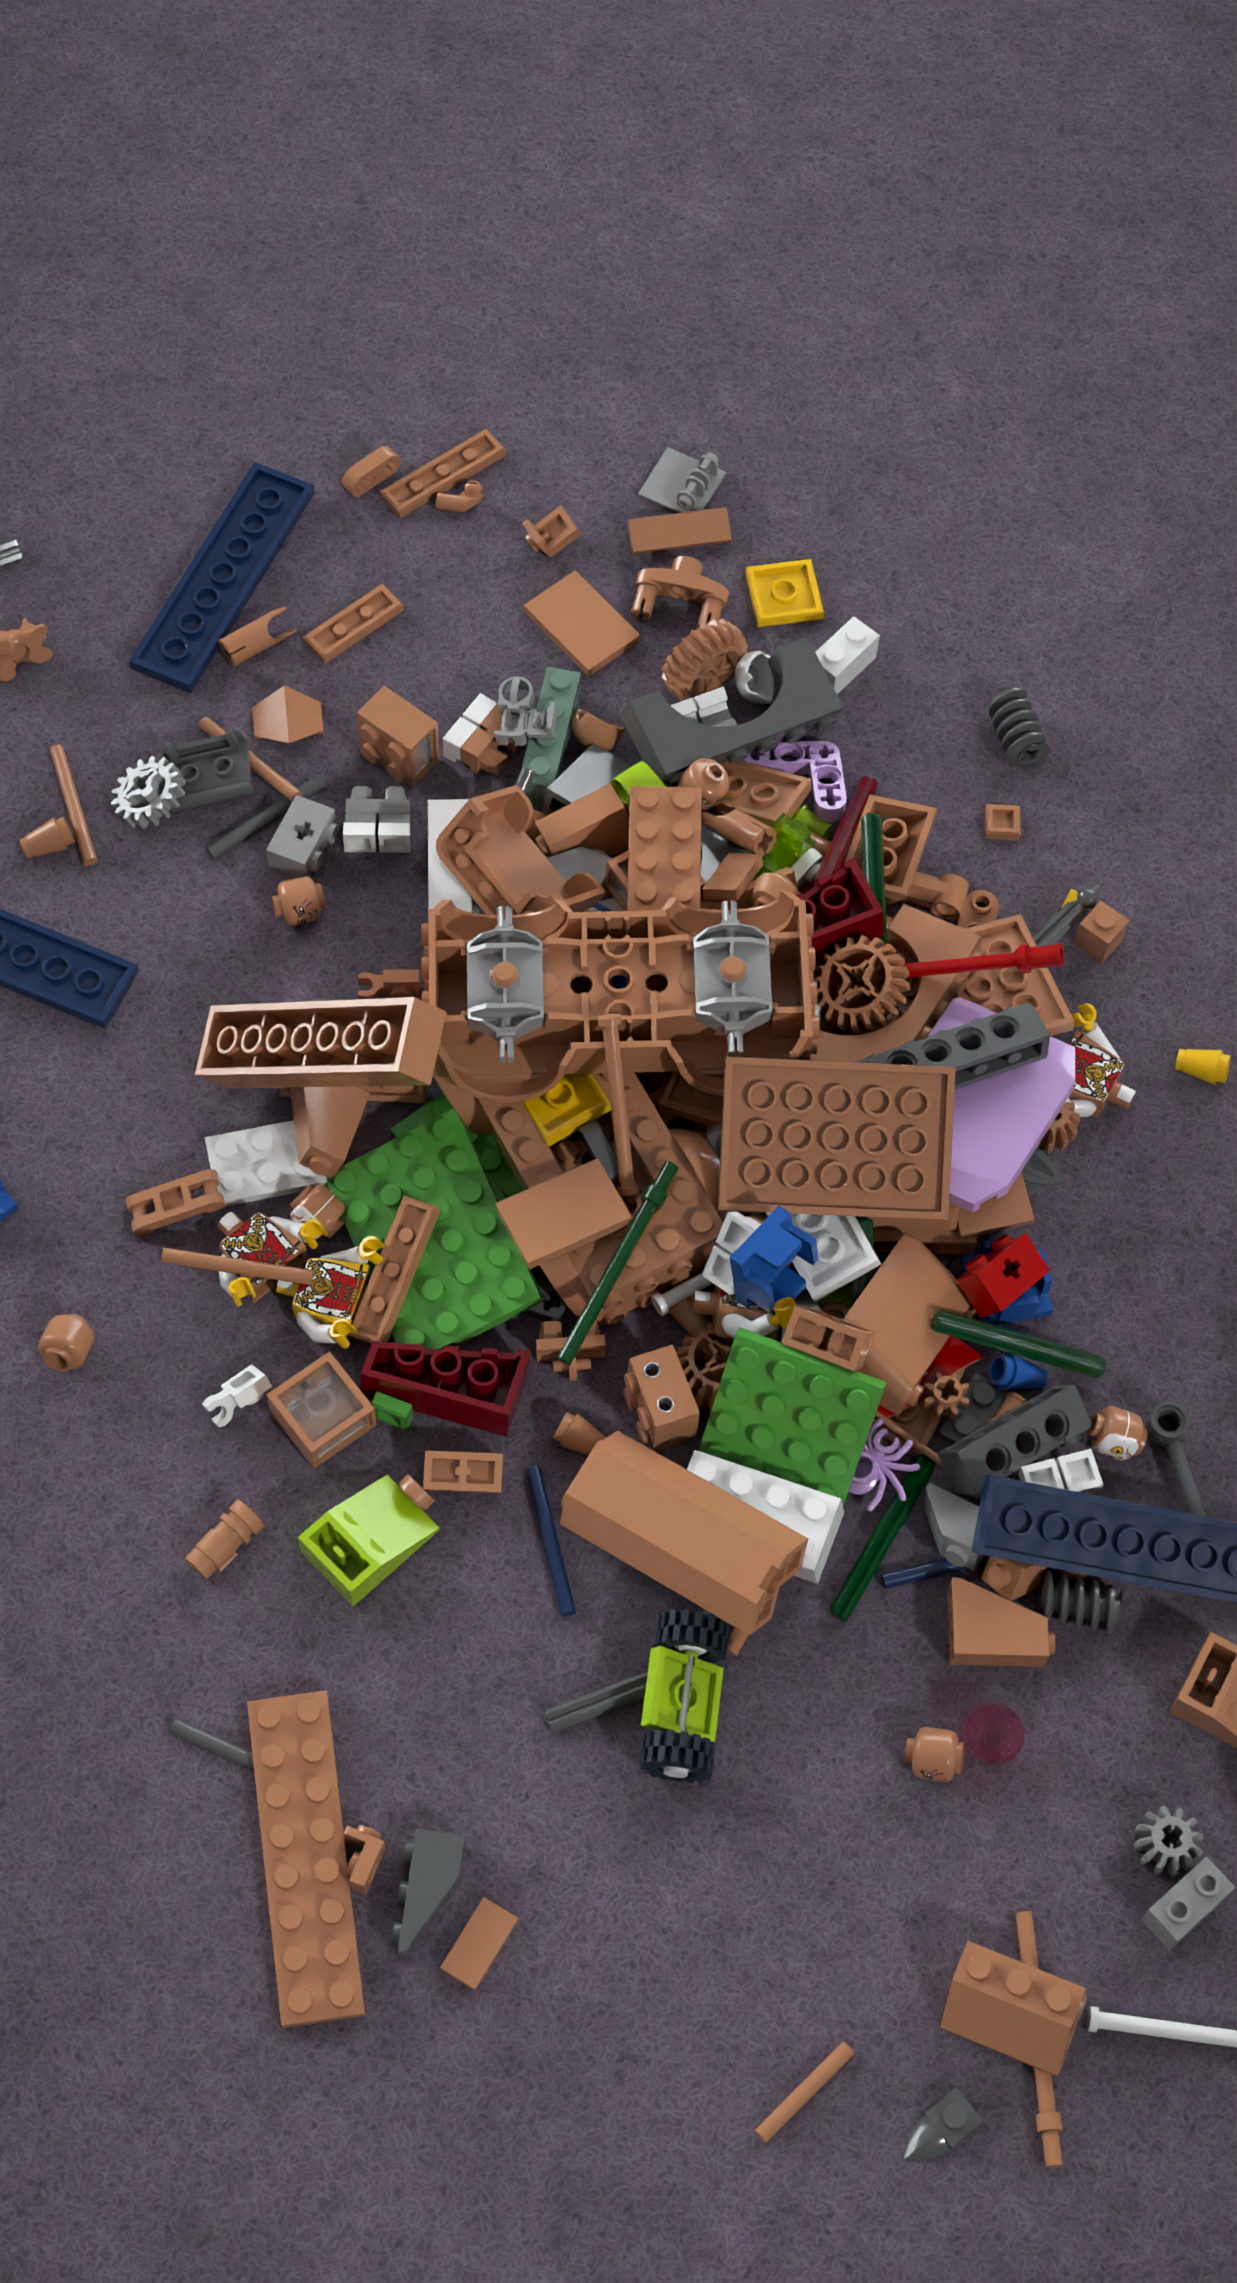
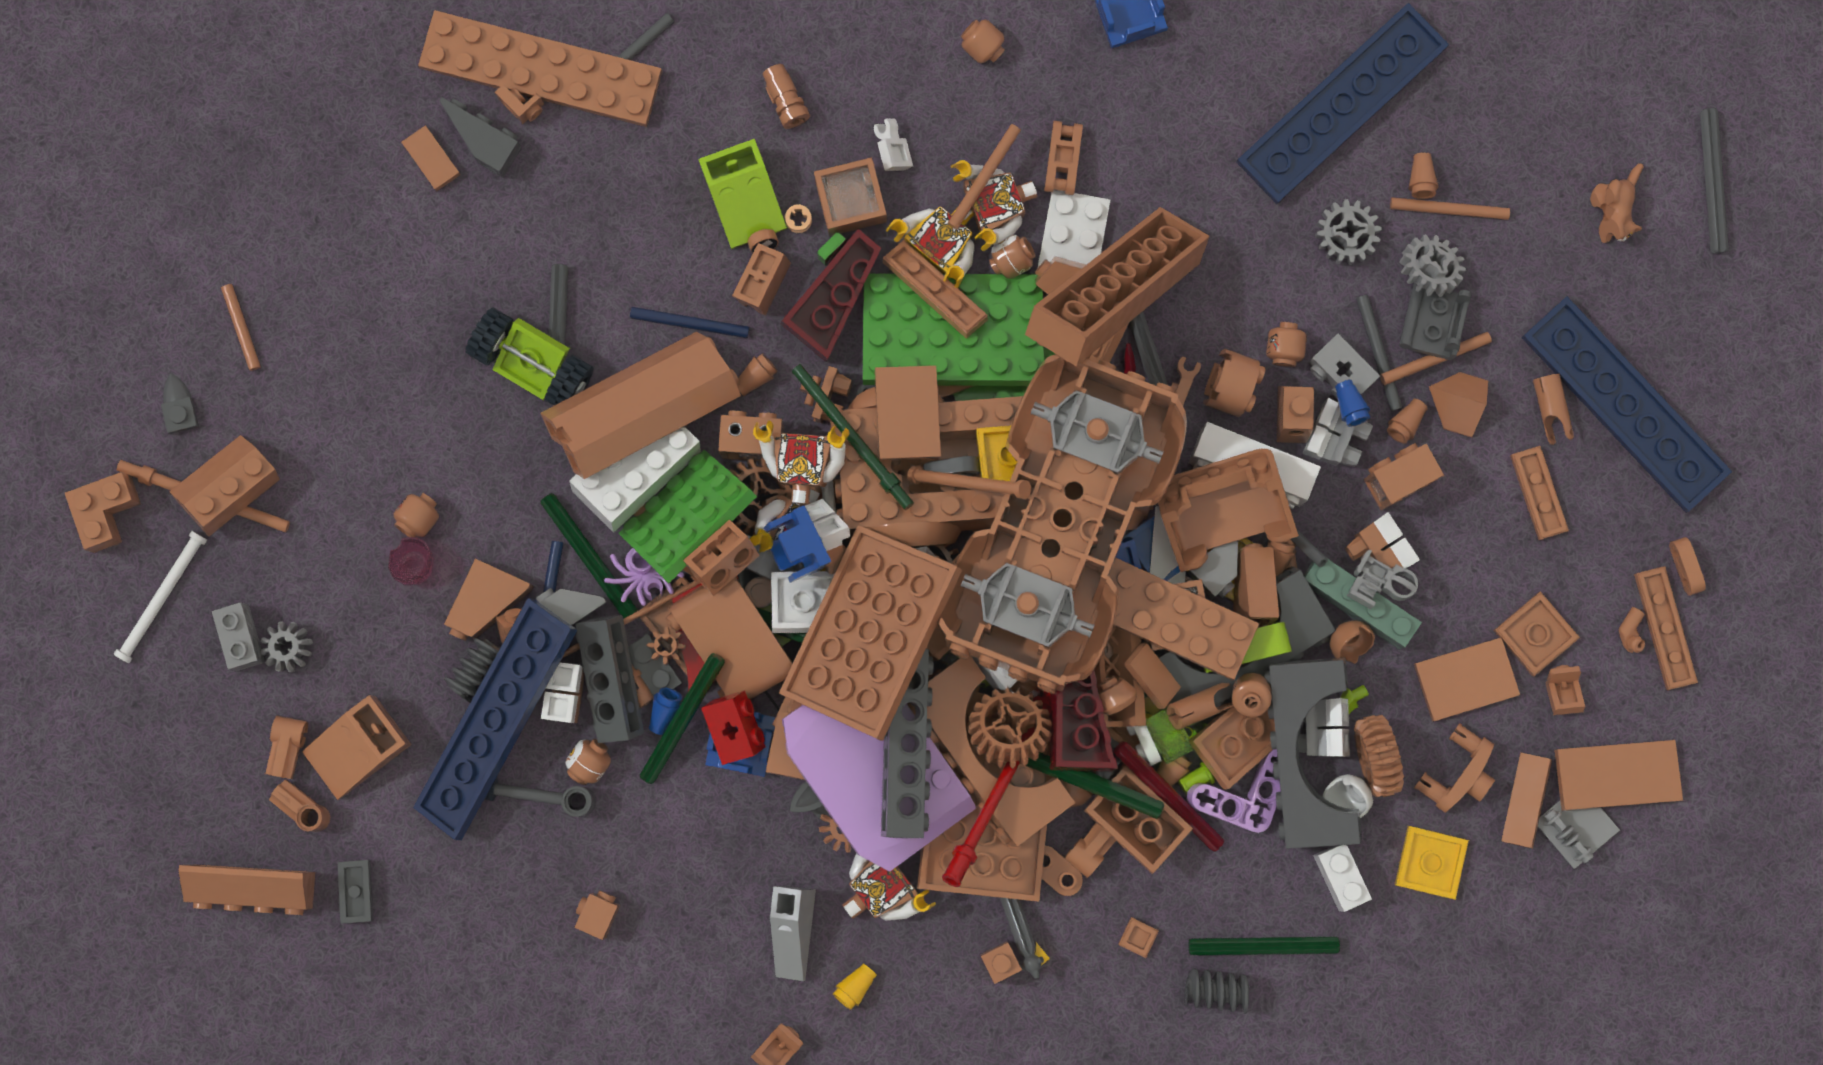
camera: 115 degrees right, 20 degrees up
(129, 895) = (1347, 219): none -> light grey gear
(333, 762) = (1406, 422): none -> nougat cone
(342, 803) = (1351, 404): none -> blue cone
(358, 1463) = (791, 224): none -> light nougat bush
(367, 931) = (1233, 383): none -> nougat brick
(369, 864) = (1294, 413): none -> nougat torso
(503, 579) = (1536, 634): none -> nougat tile
(614, 463) = (1618, 775): none -> nougat tile
(668, 1303) = (802, 459): none -> torso
(948, 708) = (1266, 945): none -> dark green axle
(1117, 2166) = (94, 507): none -> nougat brick
(1181, 1145) = (791, 930): none -> light grey slope

